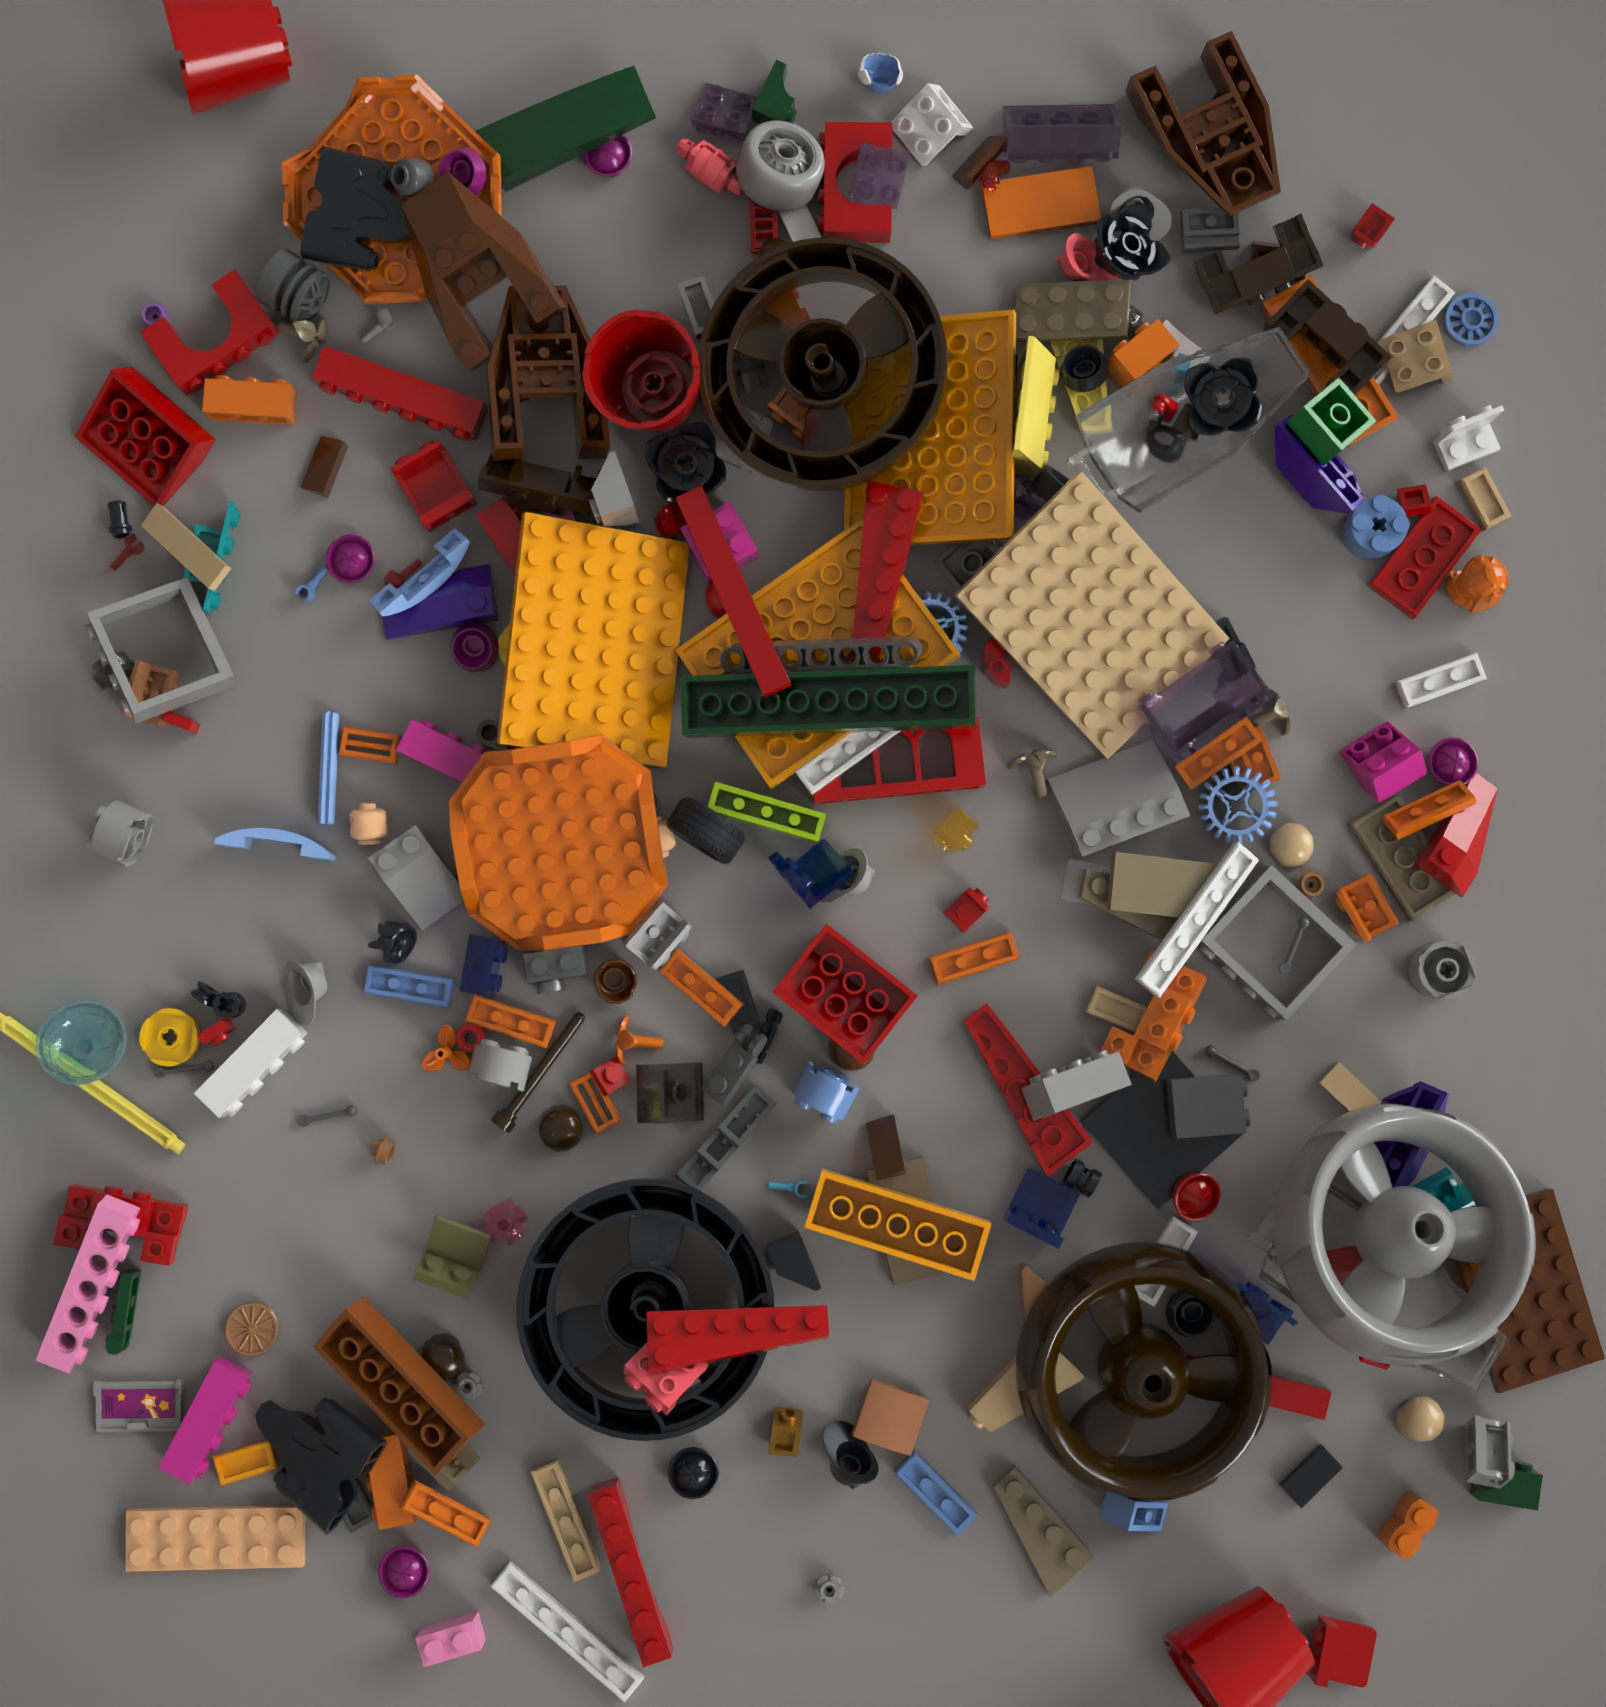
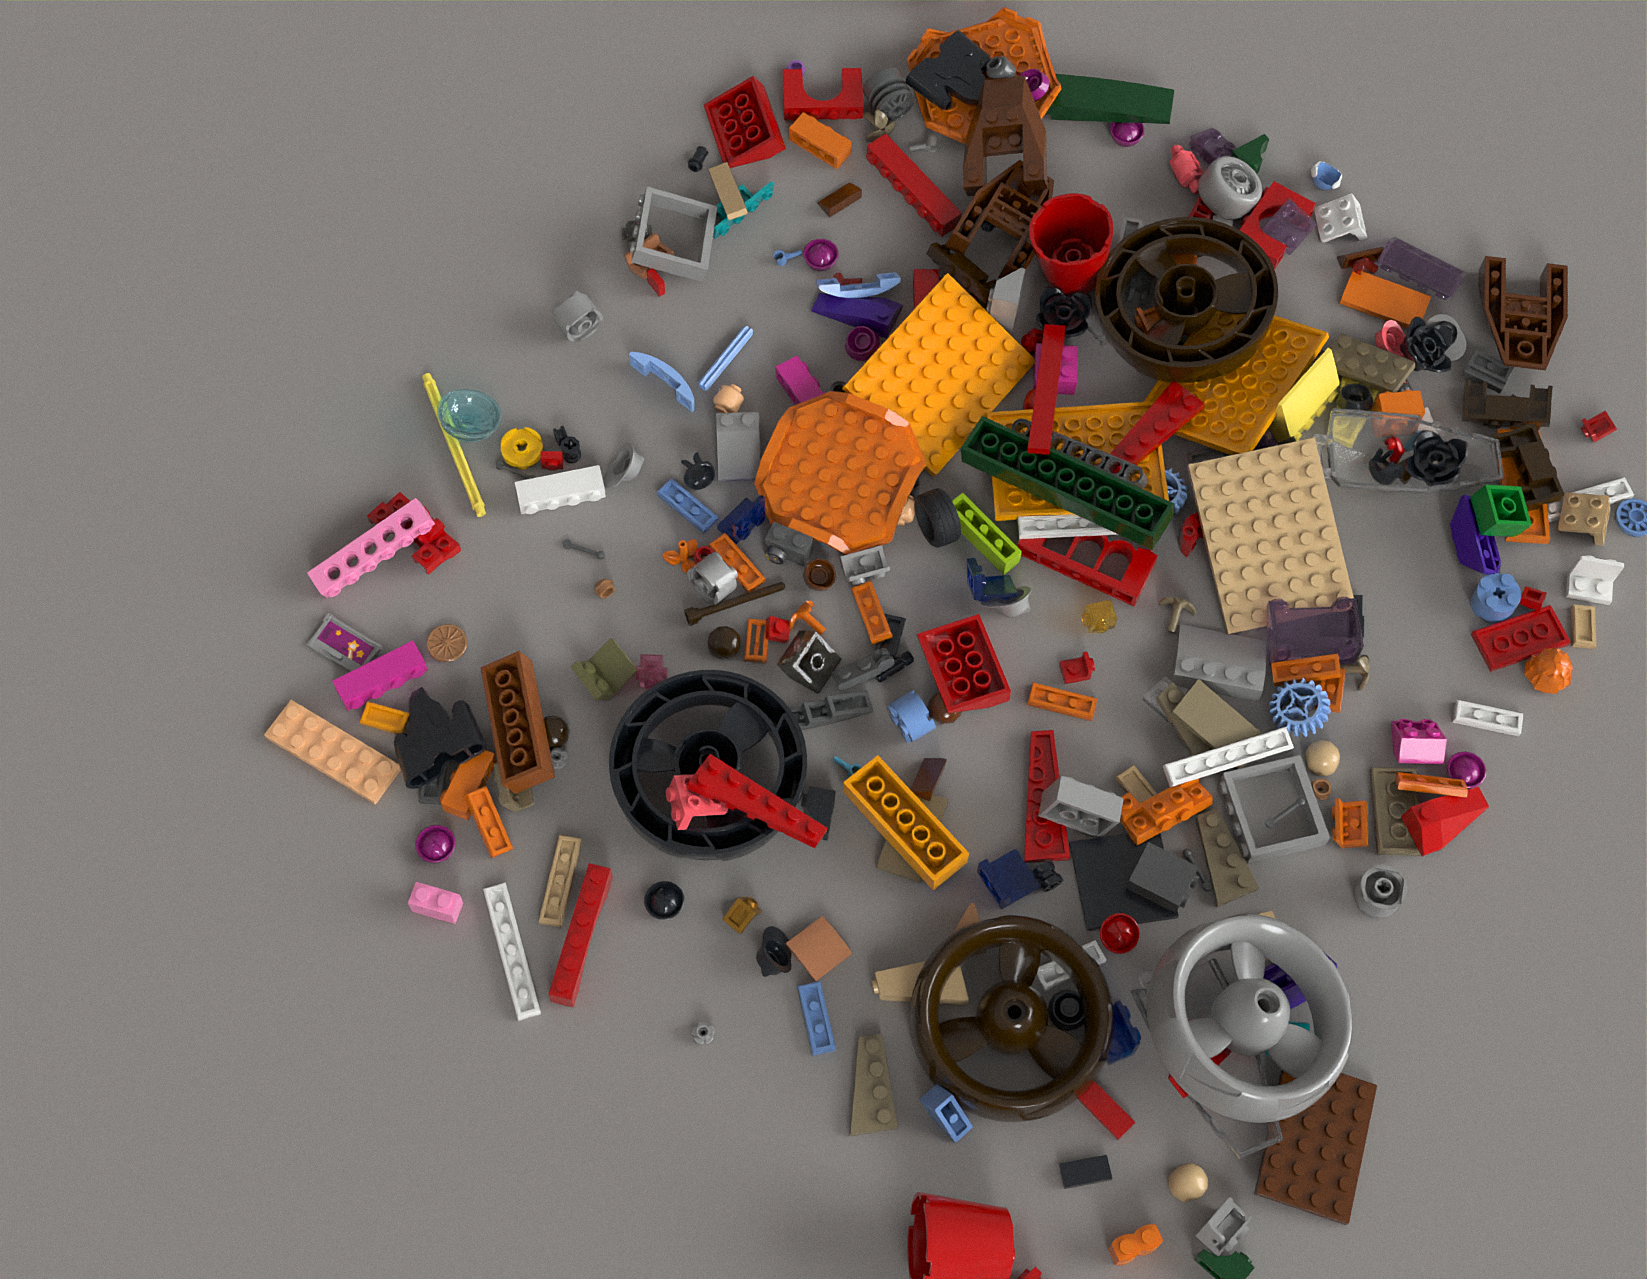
camera: 35 degrees right, 20 degrees down
(123, 1312) = (378, 583): dark green hinge -> none
(128, 551) = (695, 179): clear red hand -> none
(367, 756) = (742, 355): orange tile -> none
(433, 485) = (899, 243): red panel -> none
(1261, 1039) = (1226, 865): none -> dark tan wing

